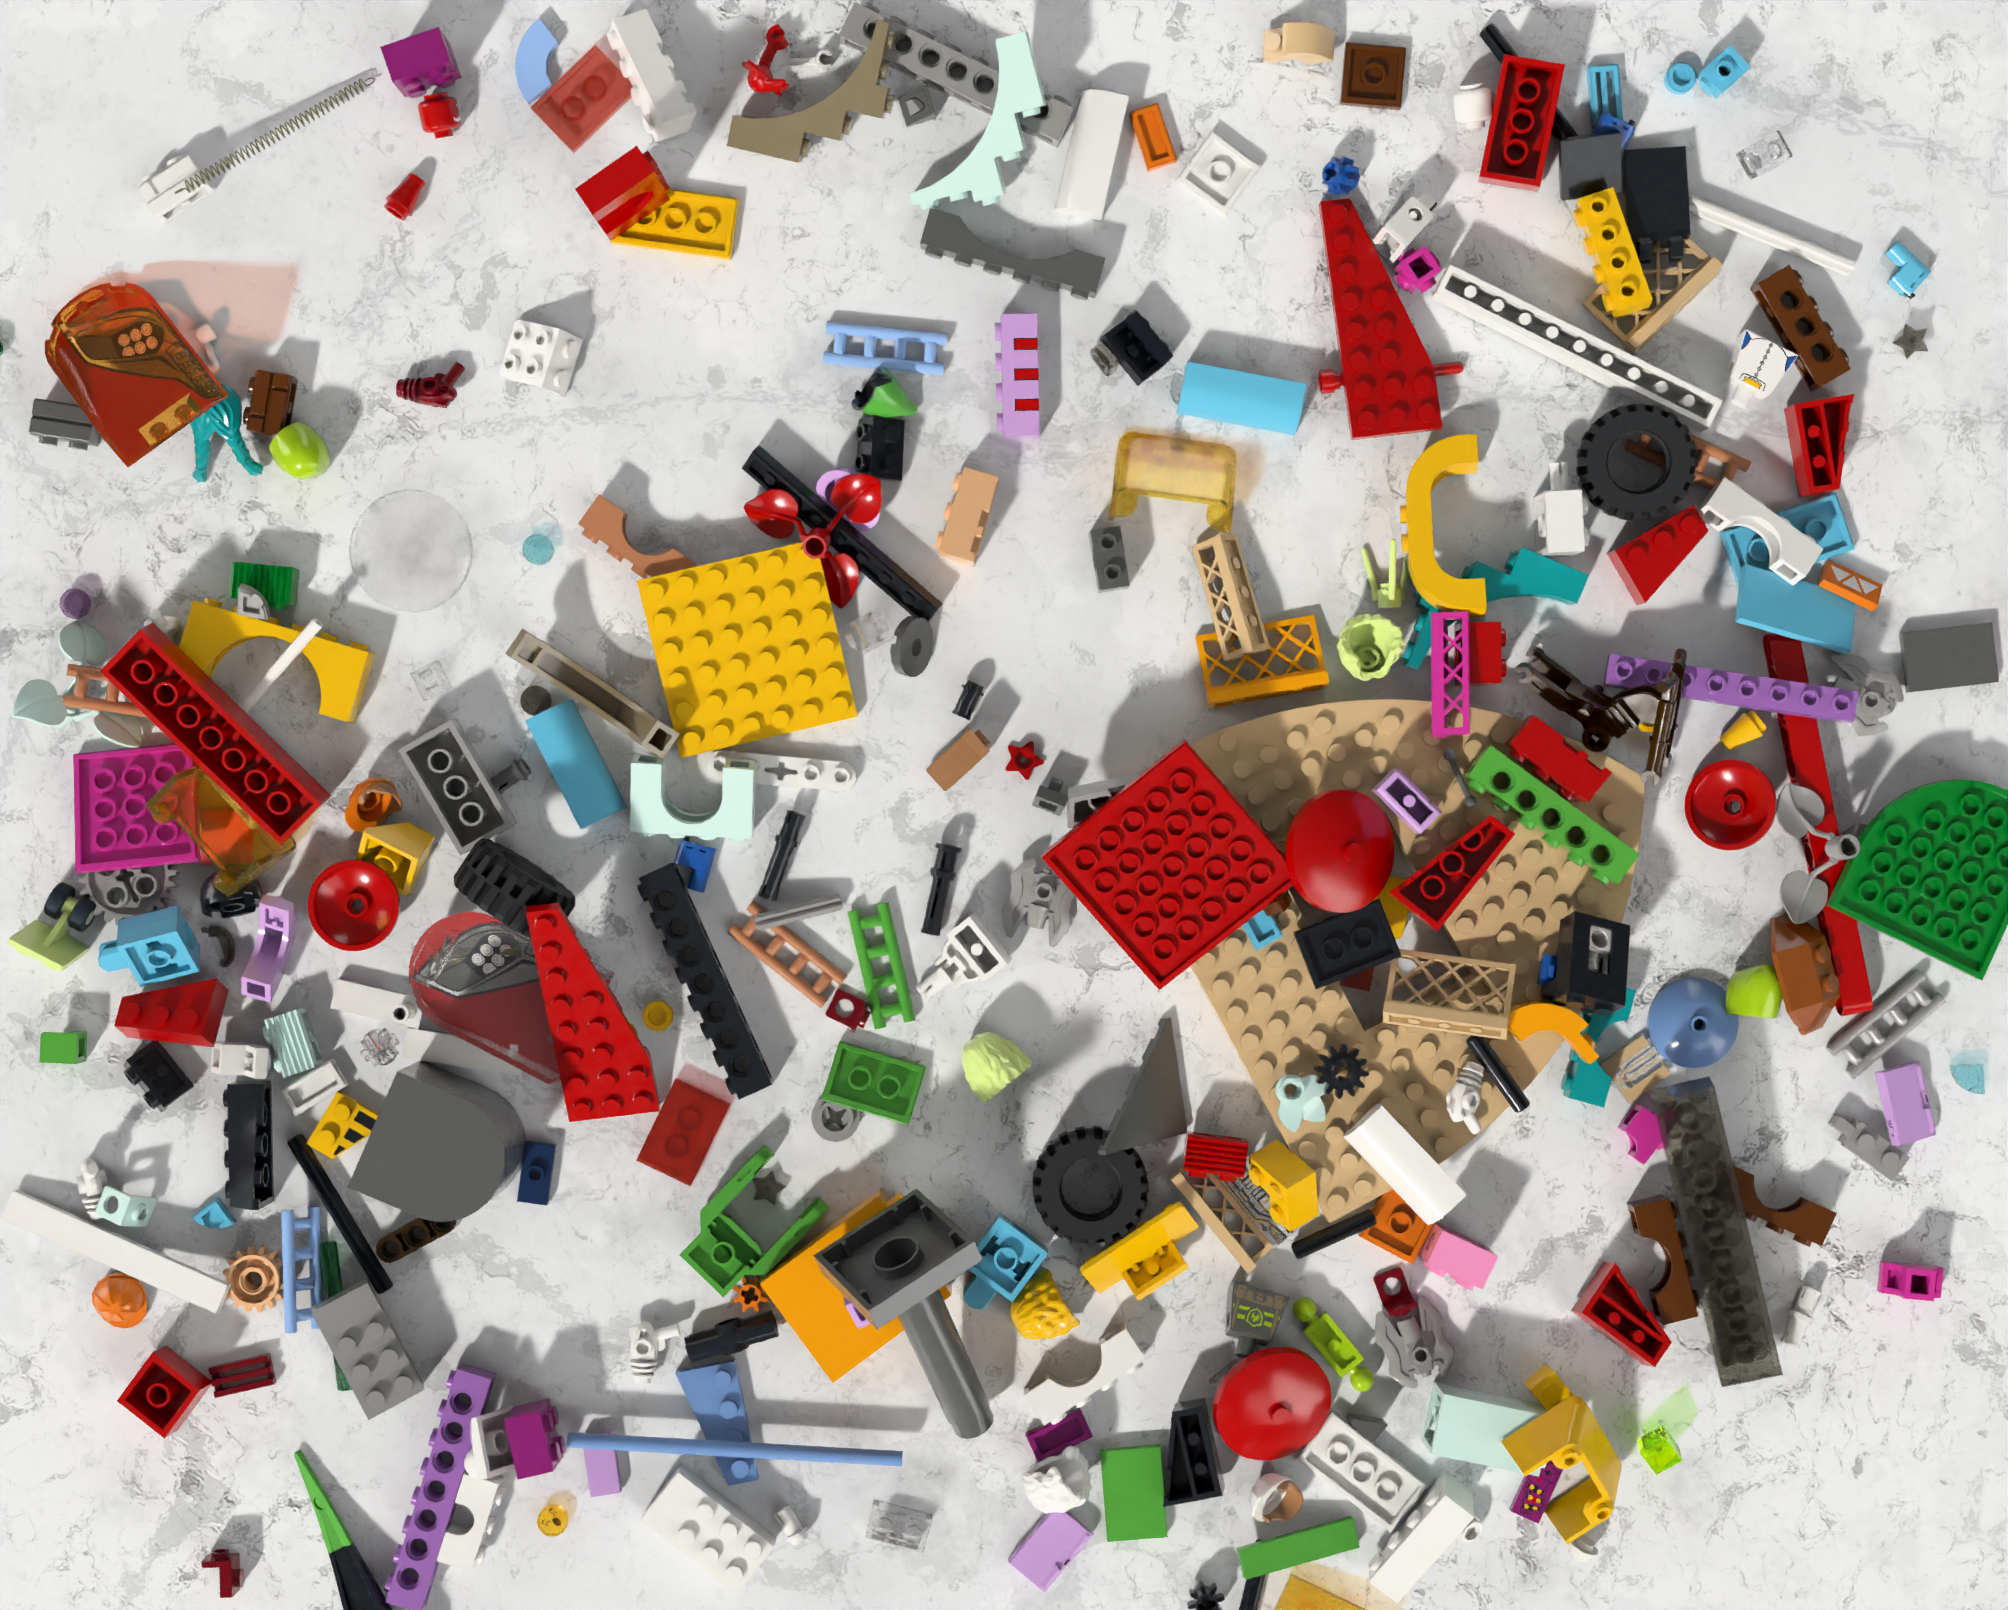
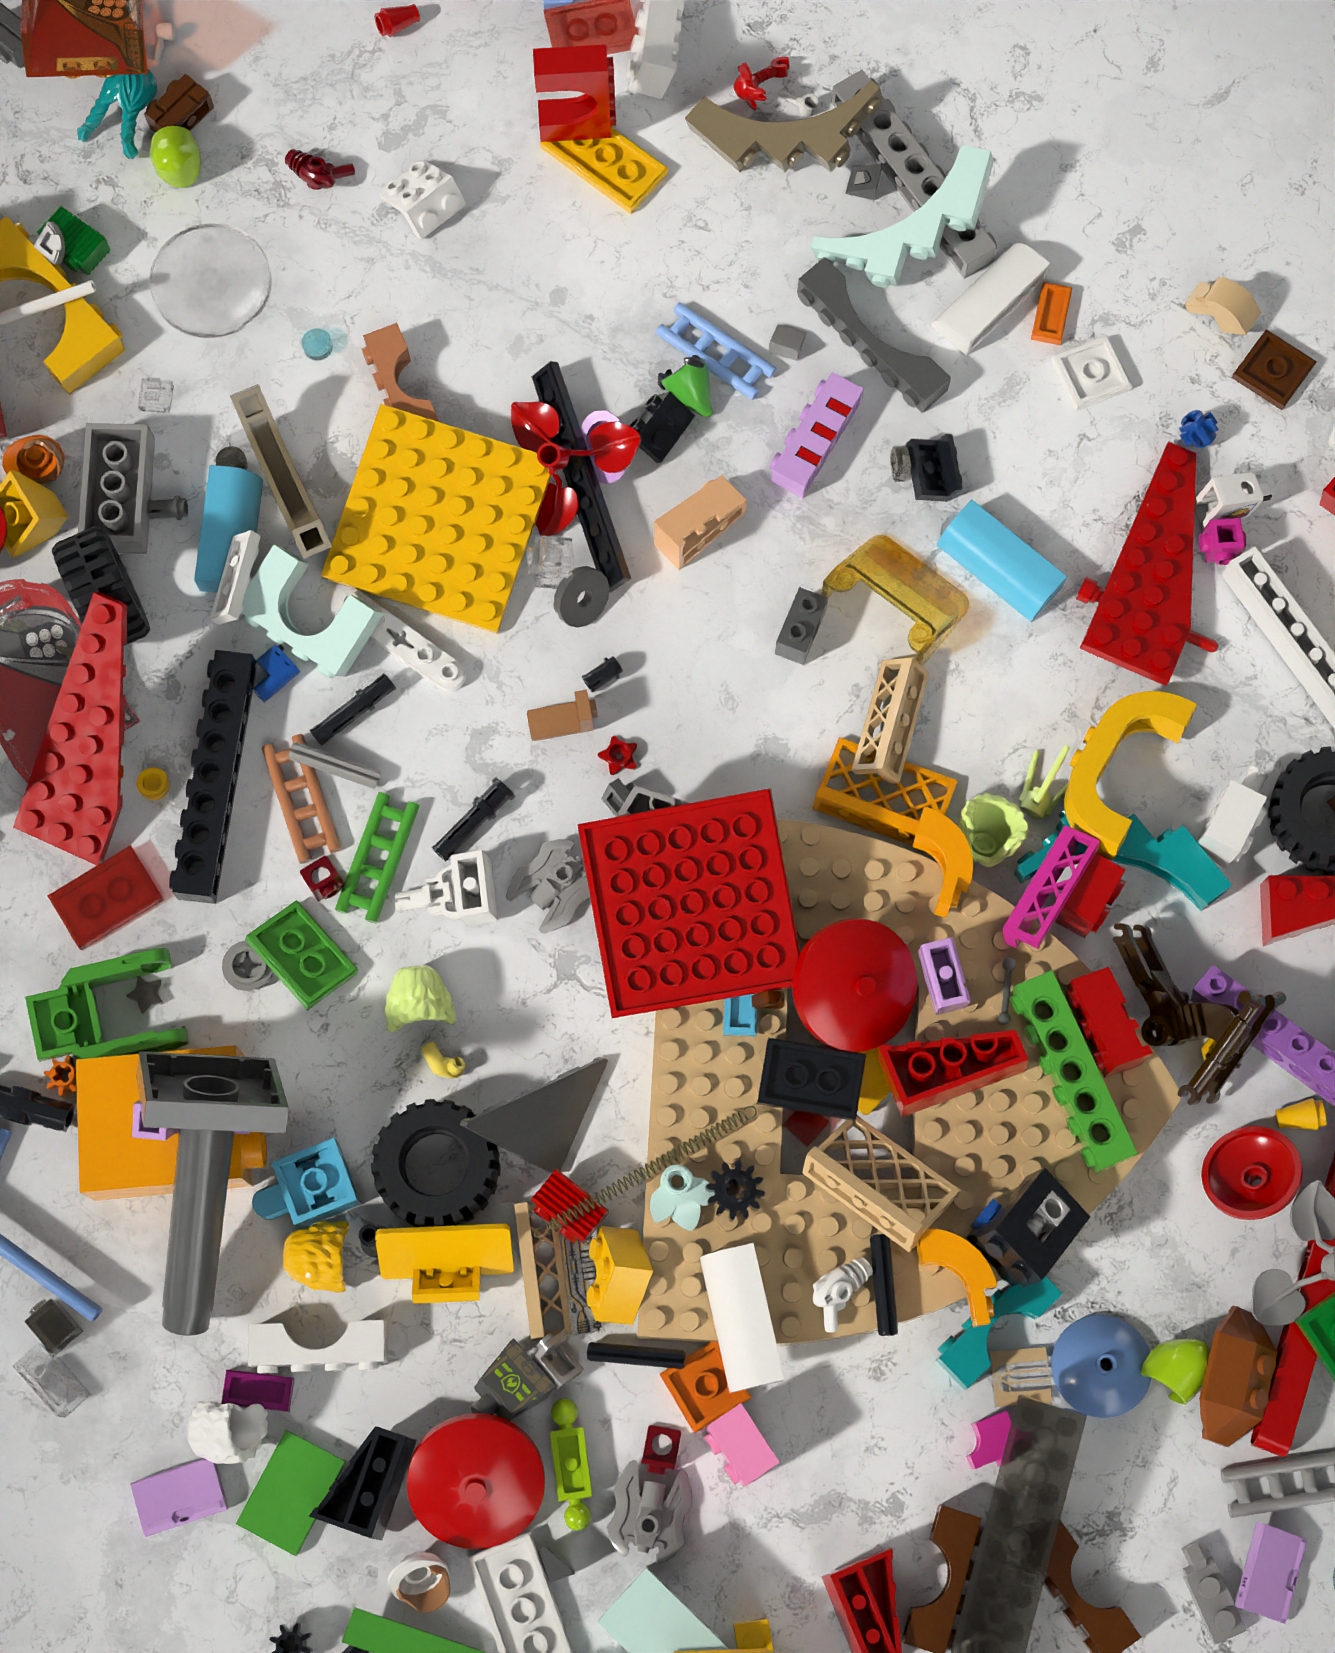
camera: 30 degrees right, 15 degrees down
(615, 807) = (235, 577): none -> white plate
(871, 1485) = (53, 1325): none -> clear smoke brick
(941, 302) = (787, 342): none -> light grey slope
(1041, 1102) = (441, 1065): none -> light yellow arm
(1074, 1262) = (365, 1233): none -> black cone
(1266, 1082) = (647, 1173): none -> olive piece
(1276, 1275) = (557, 1360): none -> light grey bracket
(1355, 691) = (951, 850): none -> light orange arch

